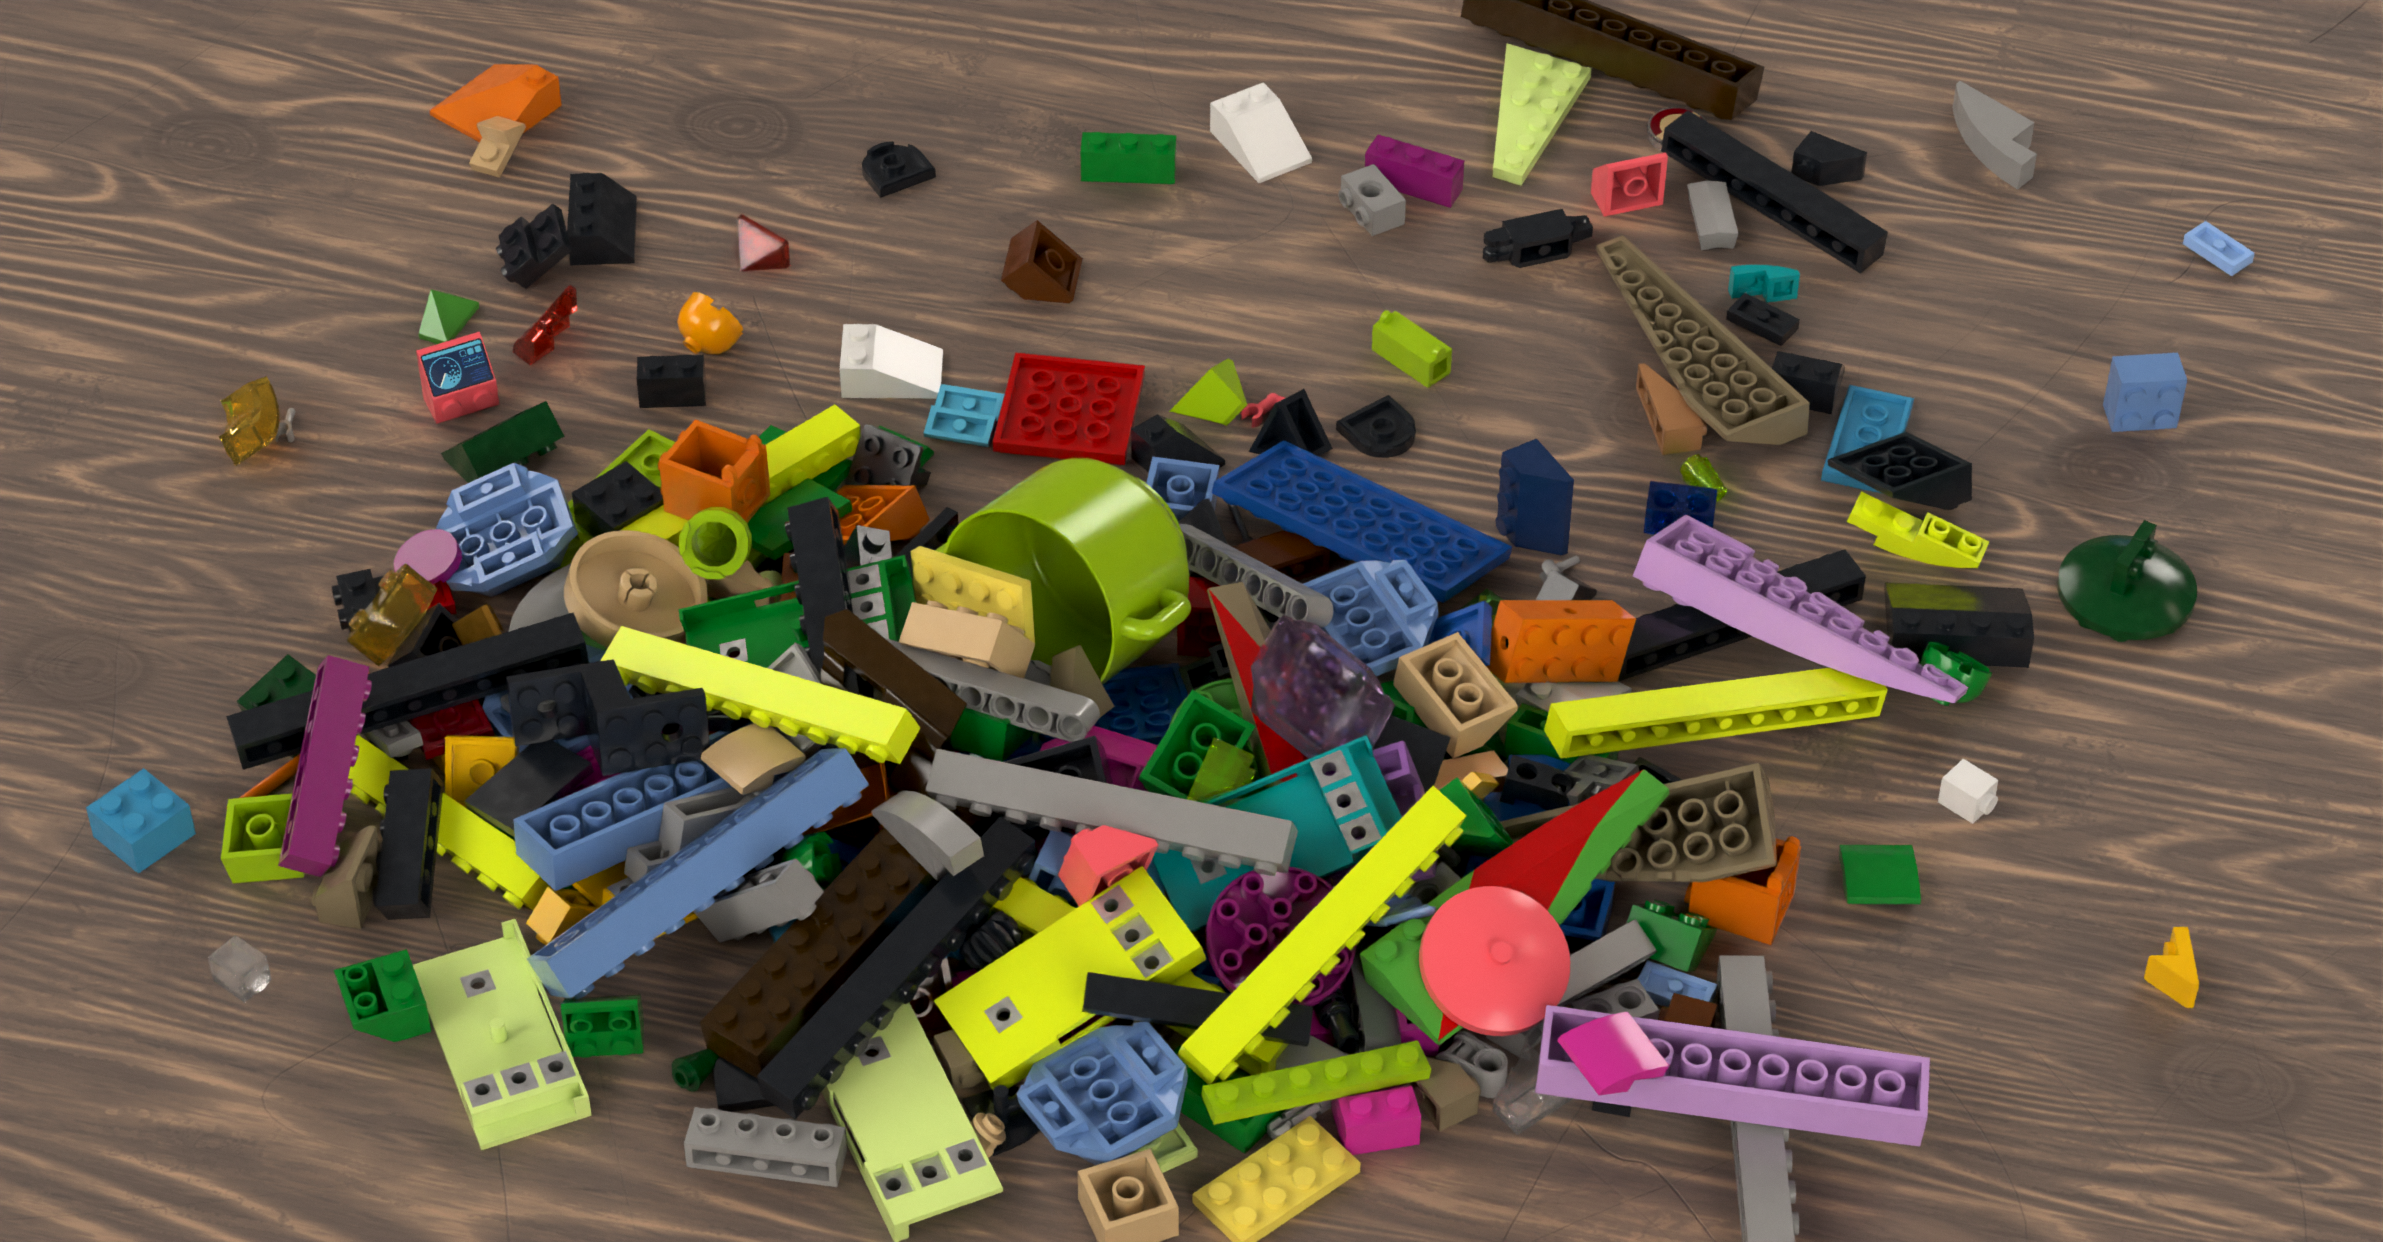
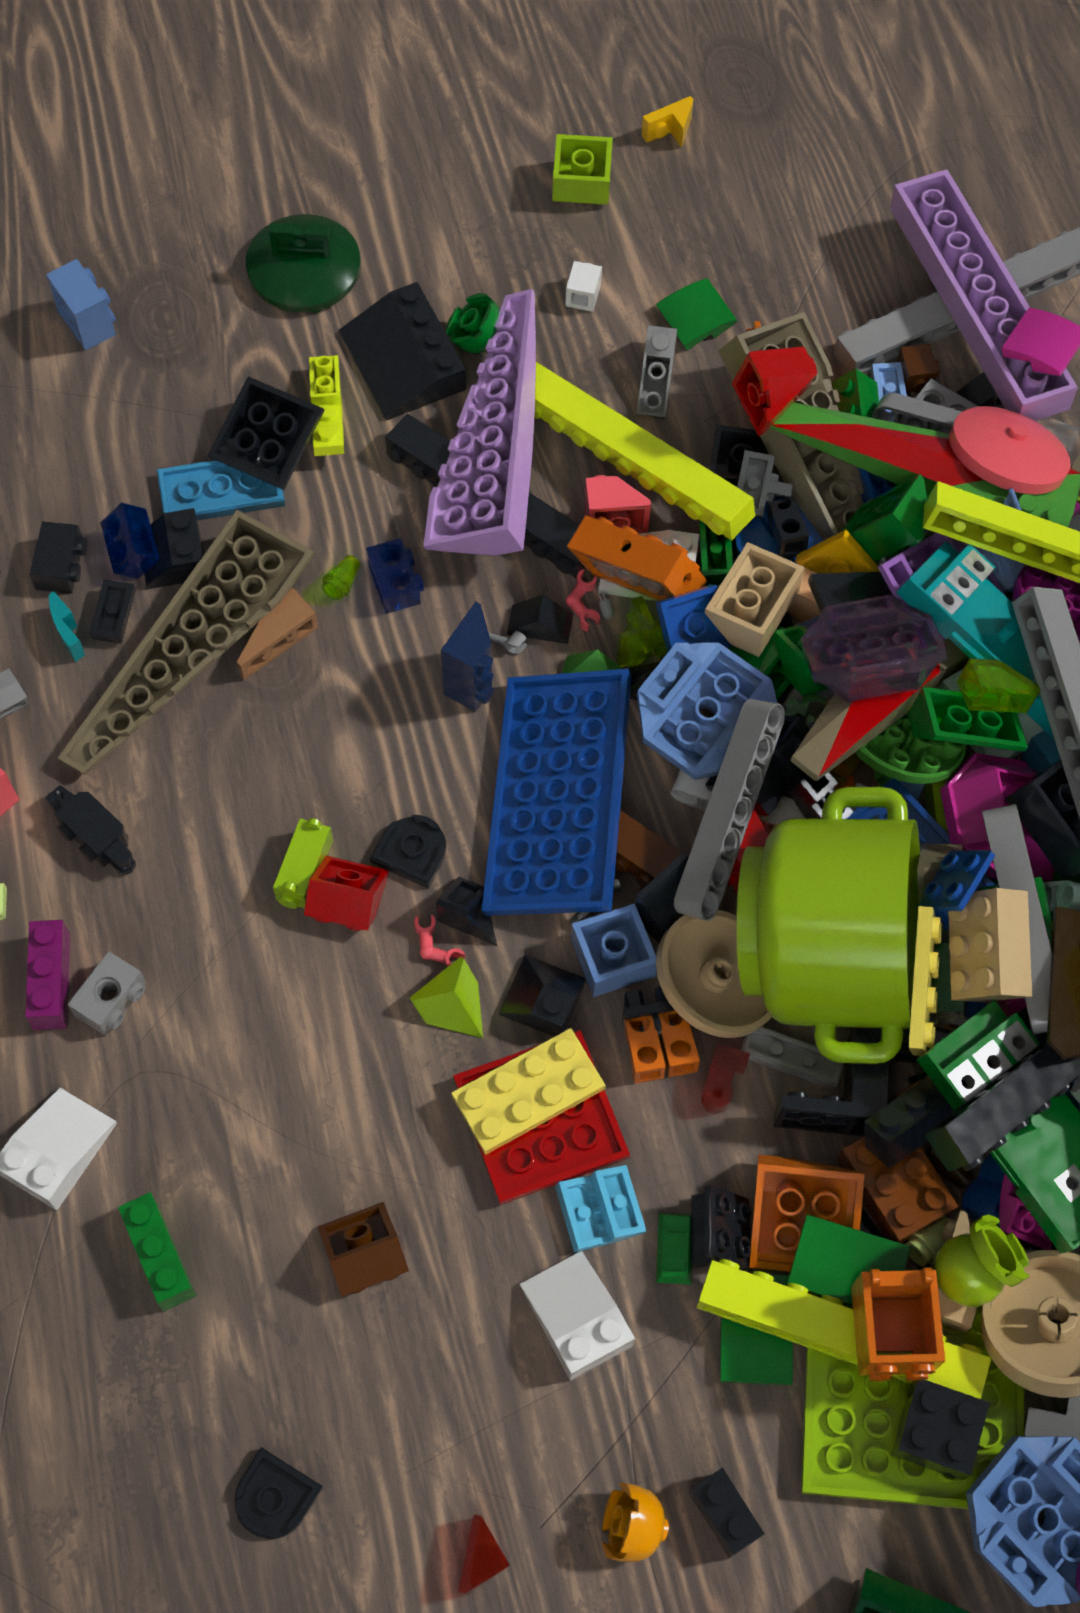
camera: 120 degrees left, 20 degrees up
(1046, 663) = (956, 882): none -> blue bracket
(1093, 398) = (528, 1091): none -> light yellow plate
(1365, 364) = (345, 893): none -> red slope
(1654, 665) = (617, 502): none -> coral slope
(1674, 759) = (772, 382): none -> red slope
(1825, 807) = (656, 371): none -> light grey slope
(1831, 343) = (129, 540): none -> clear blue brick
(1846, 300) = (58, 557): none -> black brick
(2135, 847) = (582, 169): none -> lime brick

